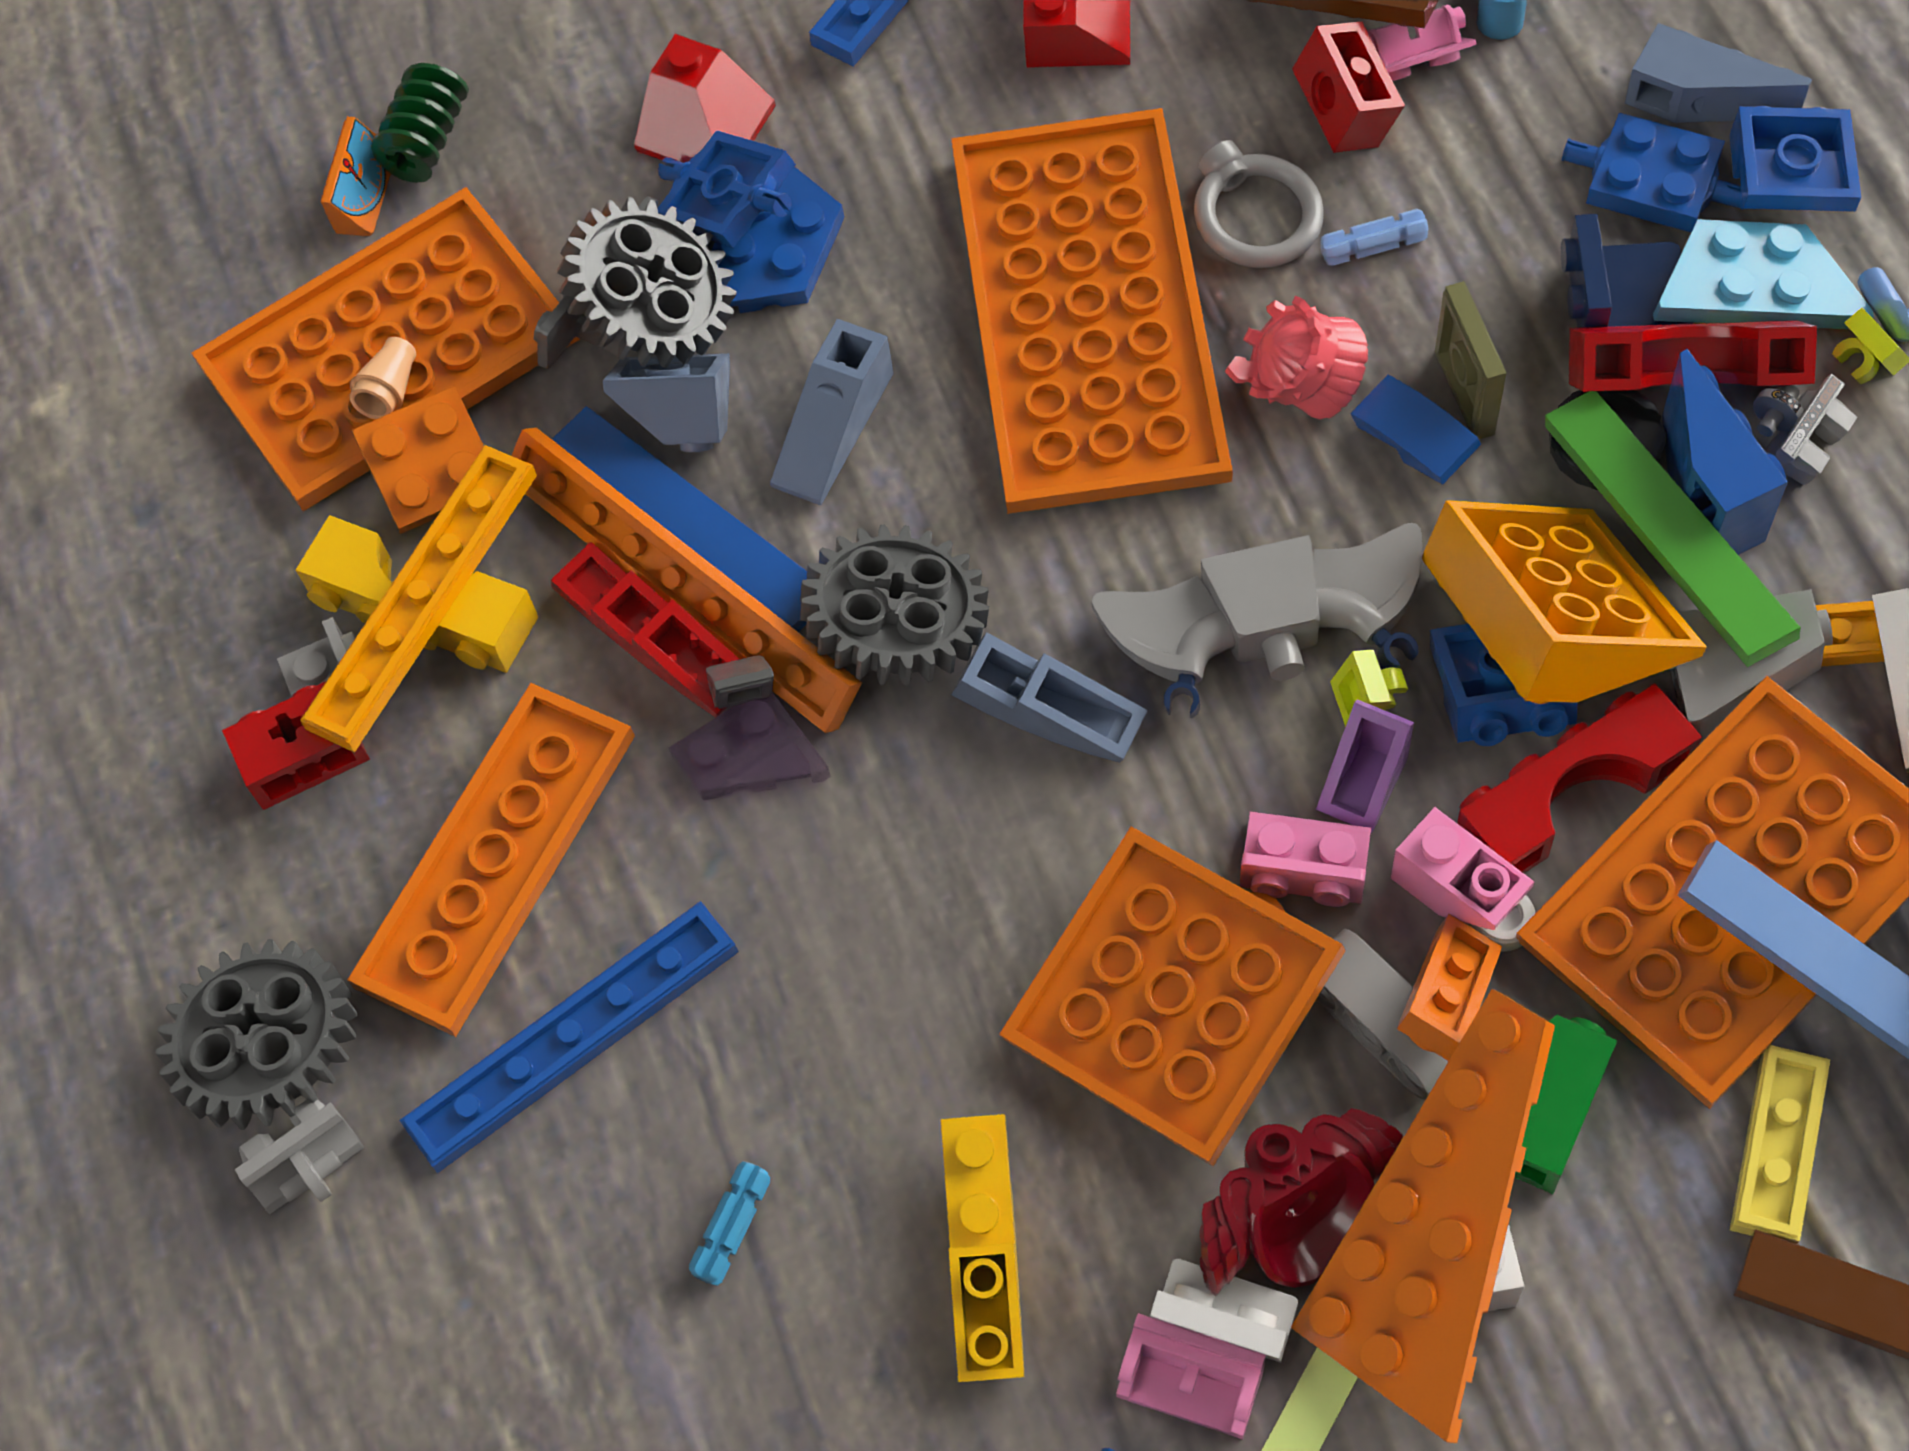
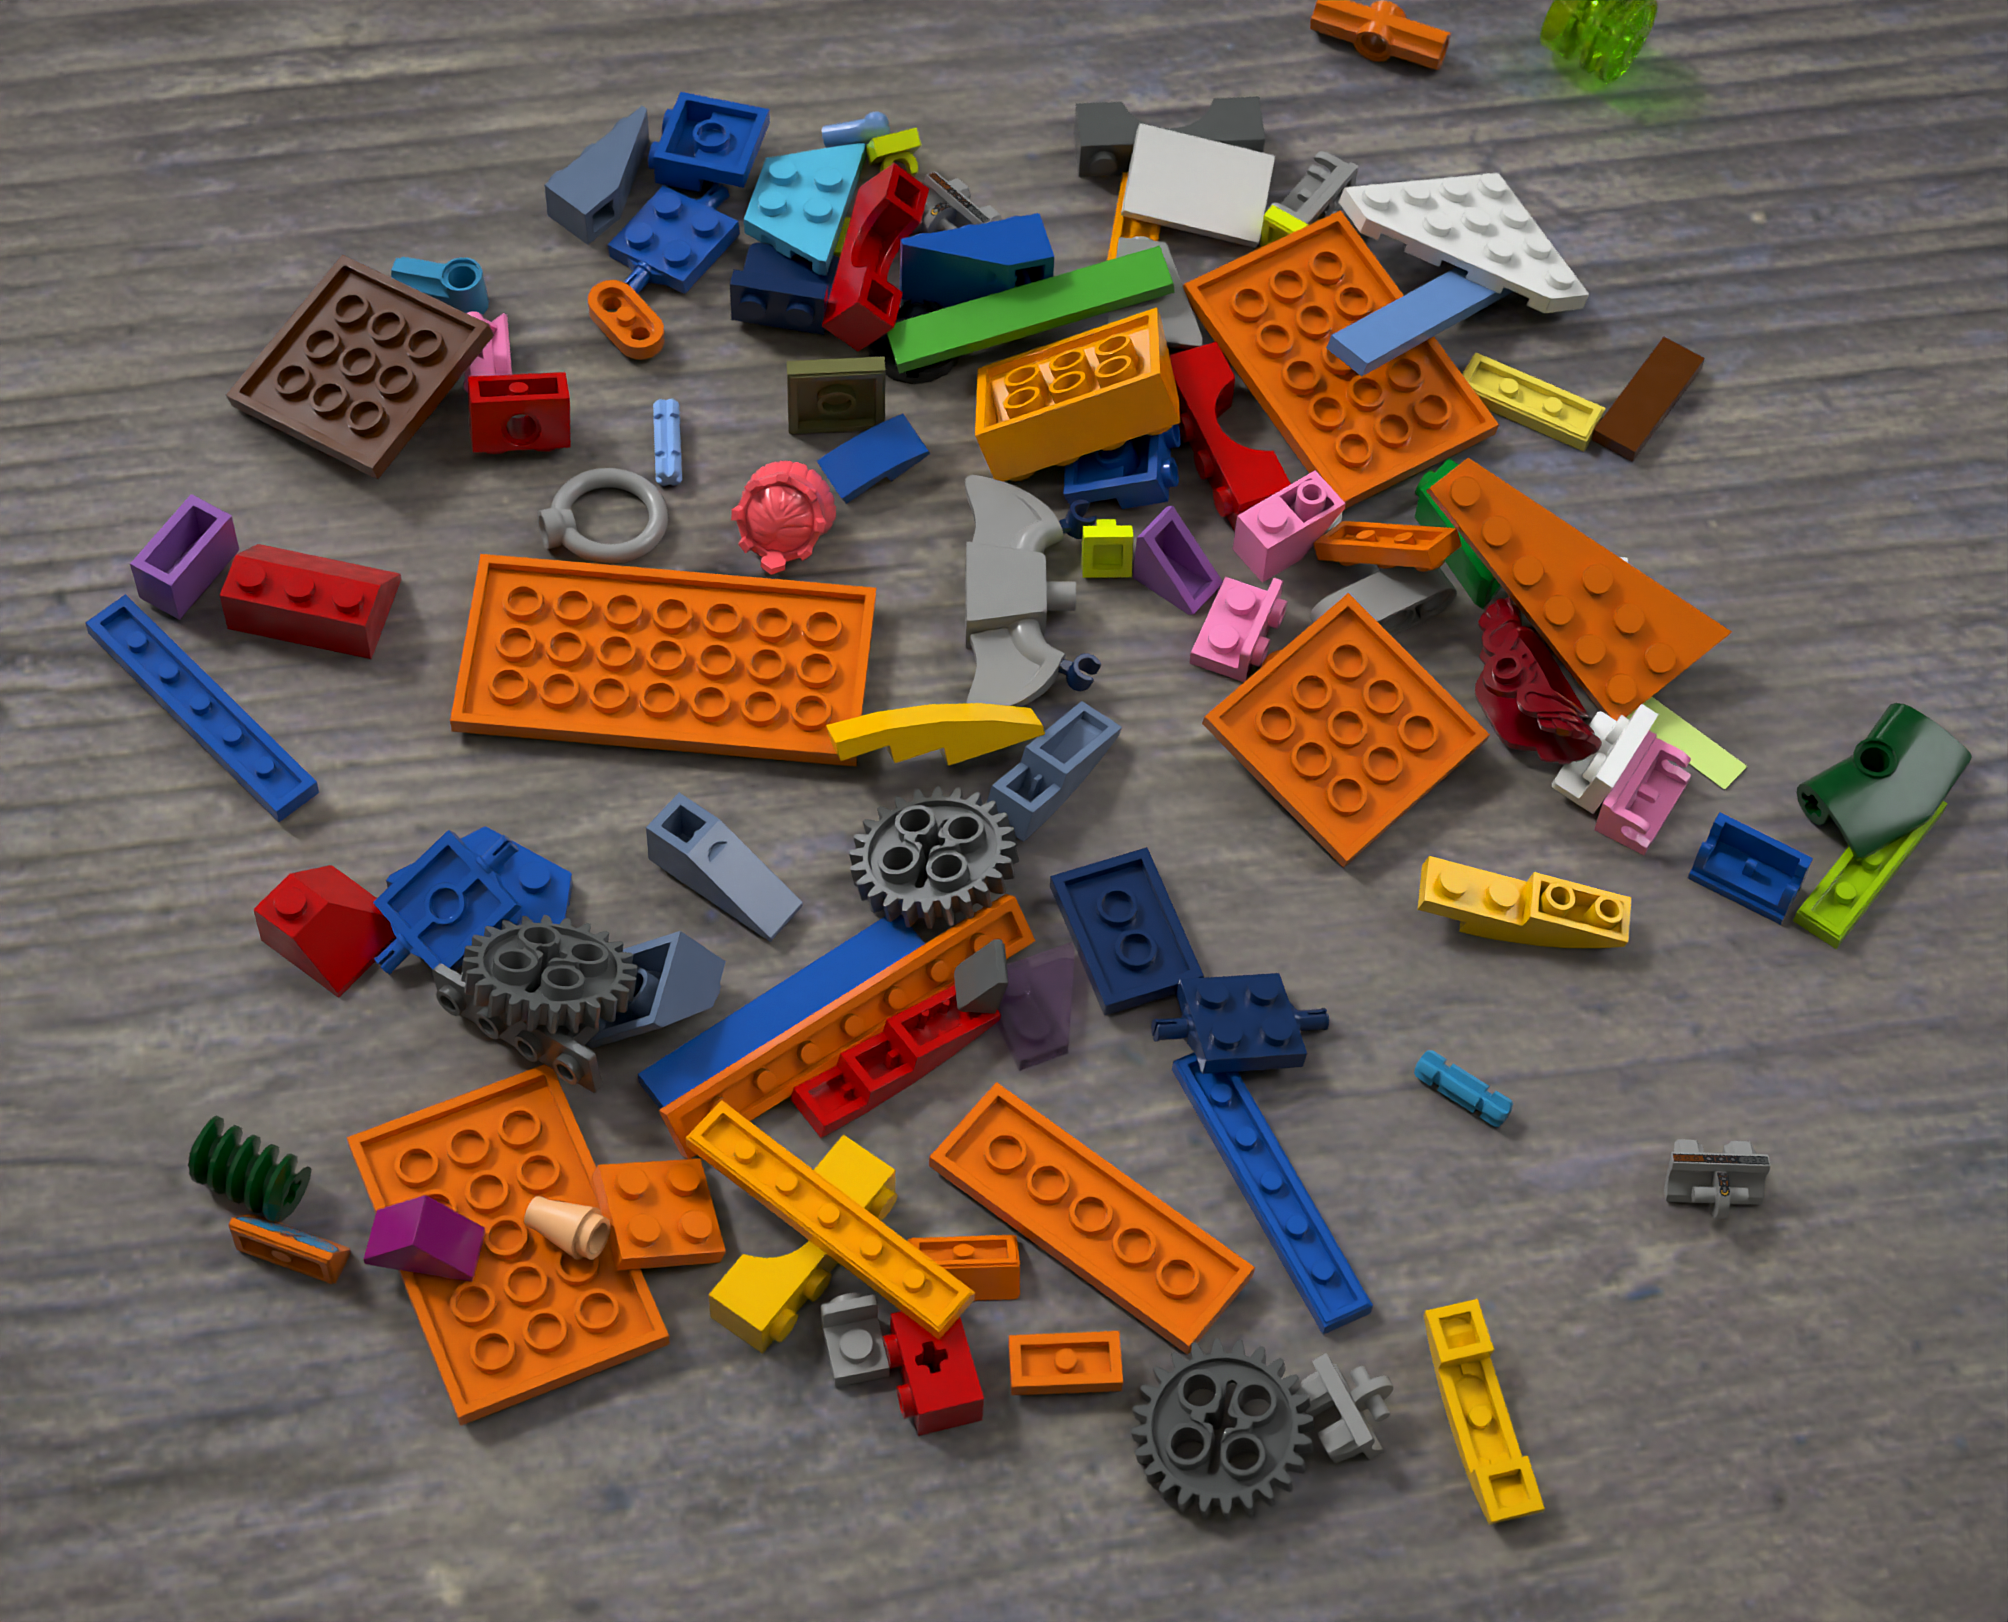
camera: 90 degrees left, 5 degrees down
(308, 1311) = (1478, 1413): none -> yellow slope
(320, 867) = (1065, 1363): none -> orange plate
(354, 275) = (425, 1240): none -> magenta slope
(426, 750) = (982, 1263): none -> orange slope
(755, 958) = (1240, 1023): none -> dark blue plate
(854, 819) = (1125, 930): none -> dark blue plate
(1054, 575) = (954, 729): none -> yellow slope
(1518, 159) = (630, 321): none -> orange plate

